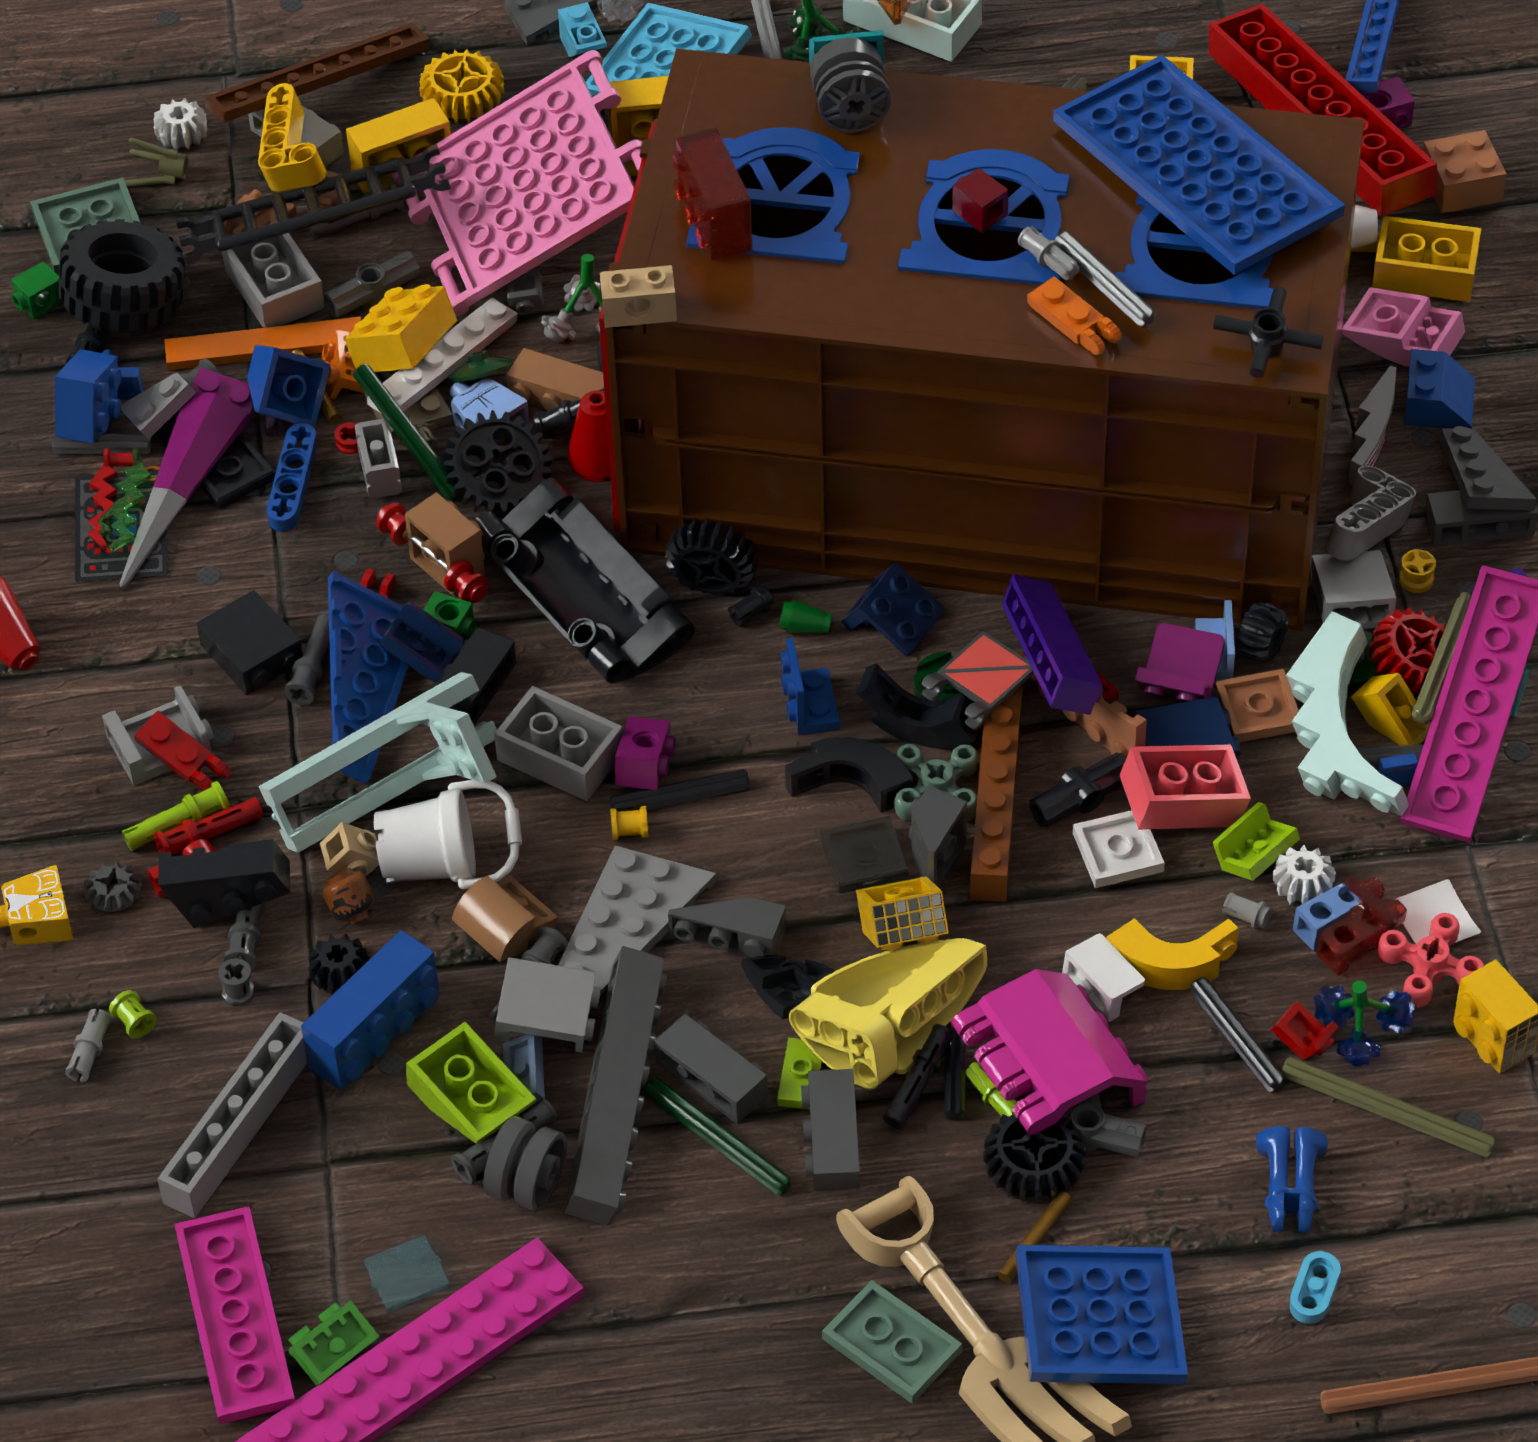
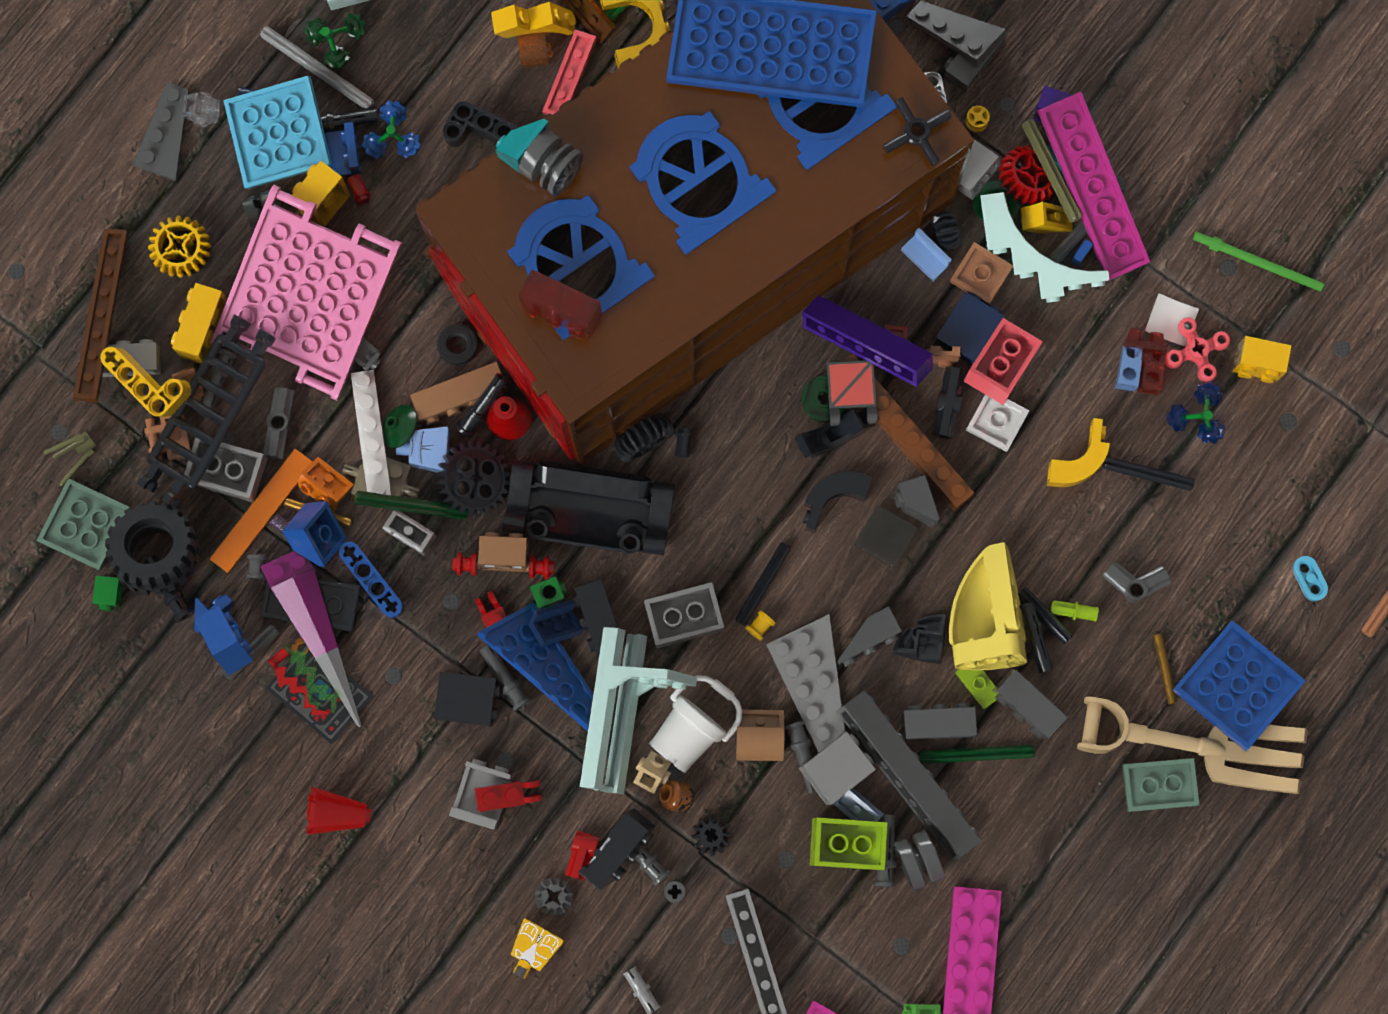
camera: 45 degrees left, 30 degrees up
(132, 1014) = (645, 955): lime bush -> none
(157, 404) = (261, 607): light grey wing -> none
(180, 124) = (54, 422): white gear -> none
(191, 808) = (545, 820): lime pin -> none
(208, 827) = (562, 834): red pin -> none
(346, 446) = (367, 523): red bush -> none
(371, 1010) = (760, 849): blue brick -> none
(401, 328) = (338, 445): yellow brick -> none
(406, 1273) = (912, 959): clear light blue piece -> none
(579, 30) = (208, 153): medium azure slope -> none
(581, 293) = (397, 327): light grey plant -> none
(638, 296) = (584, 402): tan brick -> none
(644, 753) = (734, 594): magenta brick -> none
(803, 618) = (717, 426): green cone -> none
(810, 694) = (768, 469): blue bracket -> none
(896, 609) = (754, 379): dark blue bracket -> none
(902, 913) = (946, 559): brick -> none
(939, 775) = (889, 463): sand green gear -> none
(980, 200) = (689, 176): dark red brick -> none
(1013, 1165) = (1134, 635): black gear -> none
(1047, 1045) = (1090, 568): dark pink hinge -> none
(1048, 253) = (758, 178): light grey axle -> none
(1073, 315) = (807, 207): orange hinge -> none
(1102, 974) = (1063, 501): white panel -> none
(1106, 281) = (800, 169): axle -> none
(1181, 663) = (928, 287): magenta bracket -> none
(1249, 911) = (1088, 399): light grey pin -> none
(1253, 843) = (1059, 359): lime bracket -> none
(1303, 874) = (1105, 354): white gear -> none
(1304, 1032) = (1180, 445): red bracket -> none
(1308, 1146) = (1228, 521): blue piece -> none
(1388, 1107) = (1250, 449): olive axle -> none

